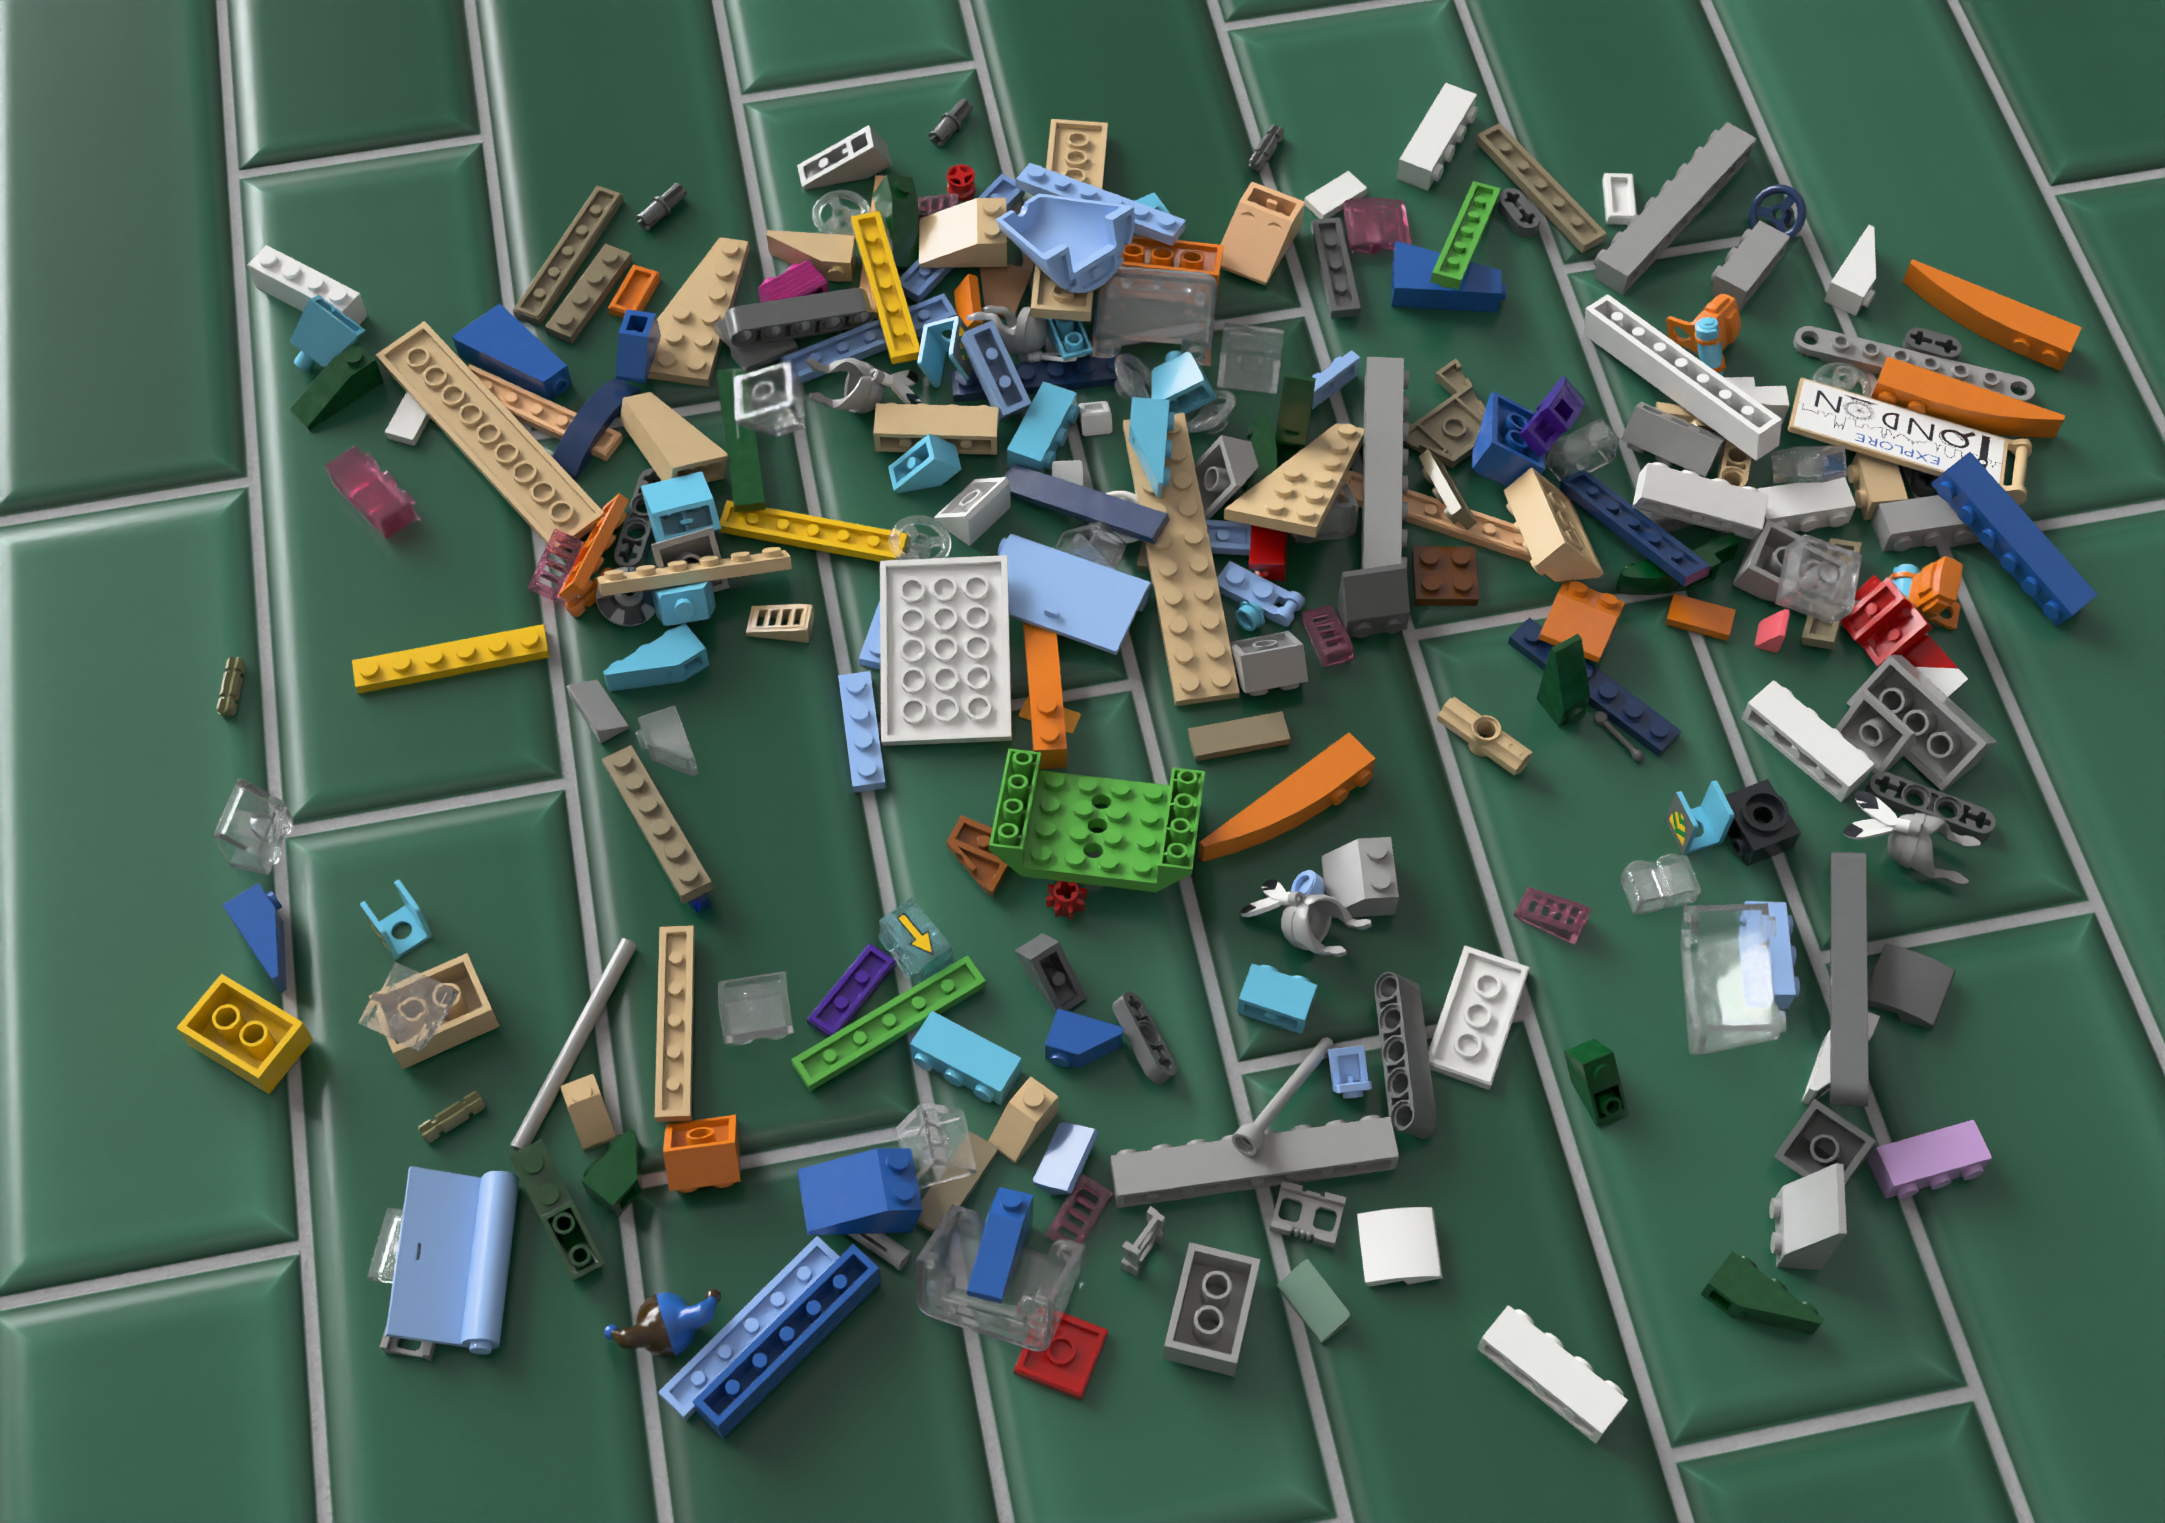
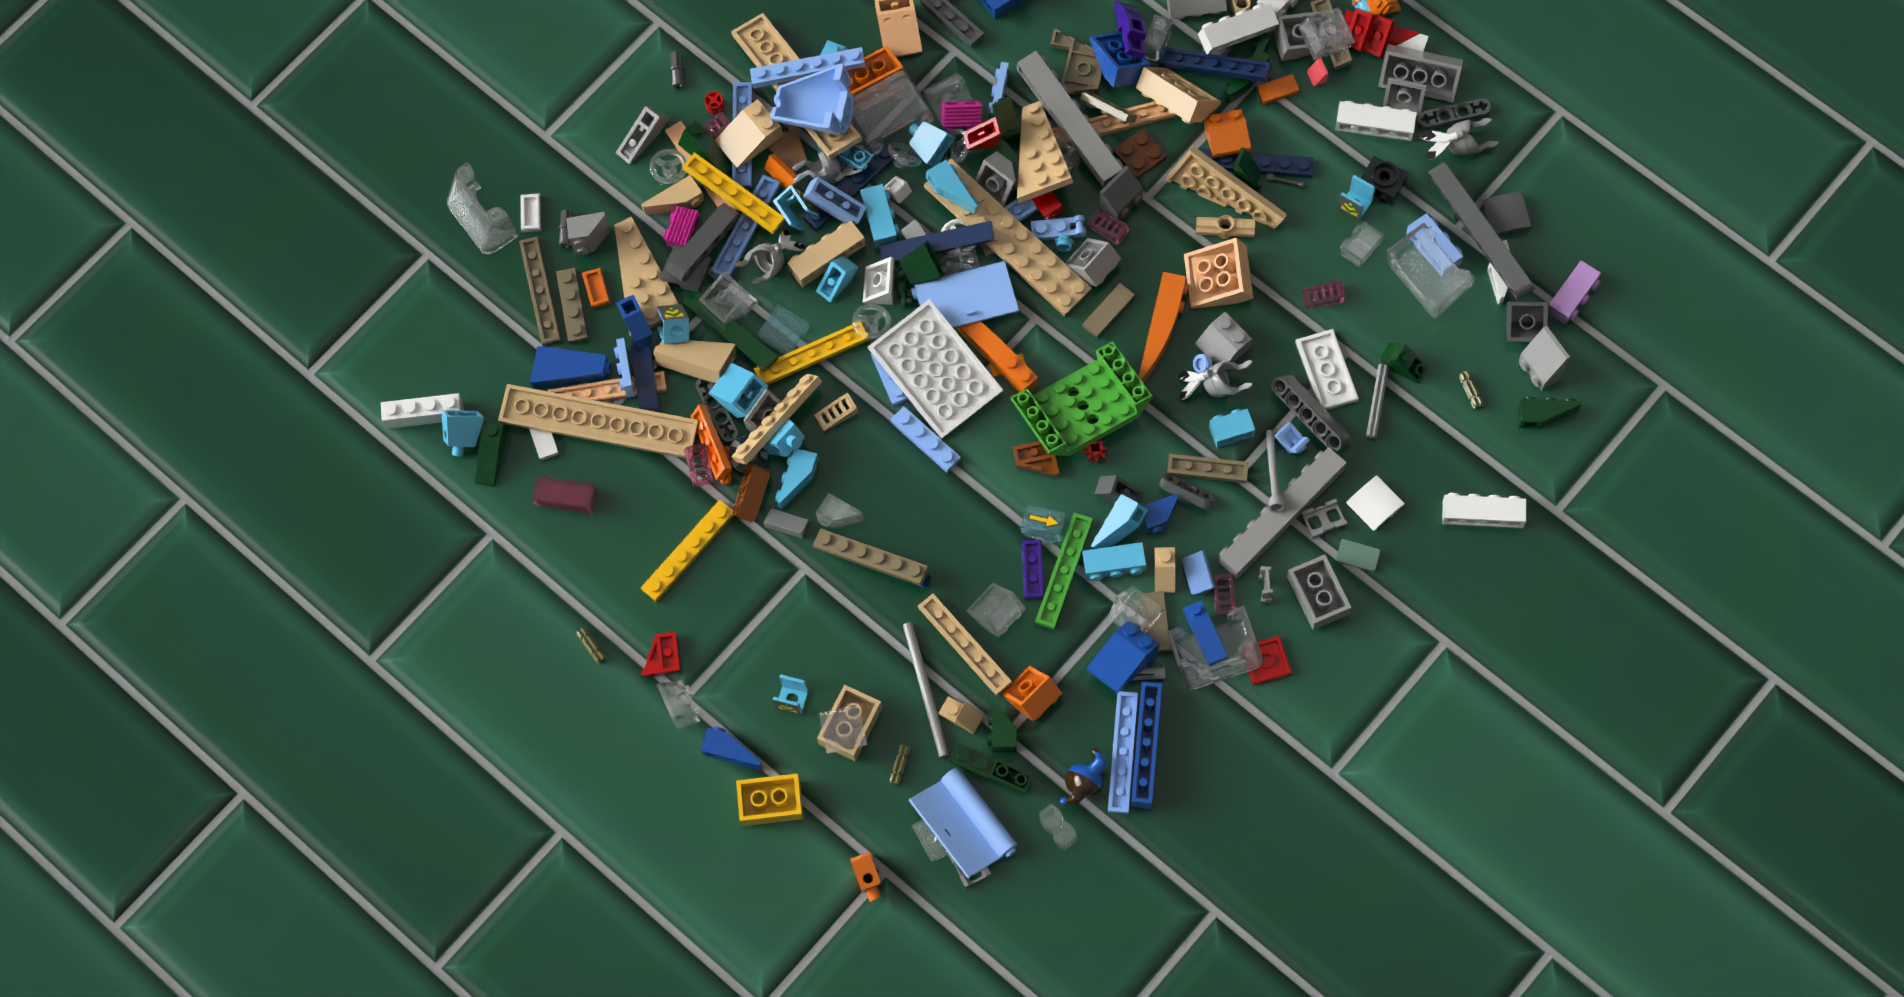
camera: 30 degrees left, 10 degrees up
(268, 1226) = (863, 866): none -> orange torso
(299, 760) = (663, 656): none -> red wing
(566, 1369) = (1061, 831): none -> clear brick
(572, 144) = (487, 229): none -> clear windscreen
(574, 395) = (624, 368): none -> light blue plate
(586, 640) = (751, 492): none -> dark orange beam
(640, 166) = (530, 212): none -> white tile
(676, 219) = (587, 232): none -> light grey slope
(682, 372) = (675, 324): none -> medium azure piece
(807, 483) = (783, 330): none -> clear light blue tile
(991, 536) = (902, 293): none -> dark green arm
(1013, 1010) = (1121, 522): none -> medium azure slope
(1037, 513) = (919, 265): none -> dark green torso
(1200, 1028) = (1207, 468): none -> dark tan plate
(1247, 378) = (961, 114): none -> dark pink brick
(1248, 412) = (983, 135): none -> red slope
(1426, 790) = (1218, 274): none -> light nougat slope
(1514, 674) = (1222, 187): none -> tan wing
(1515, 1108) = (1377, 401): none -> light grey axle
(1668, 1188) = (1470, 389): none -> olive axle

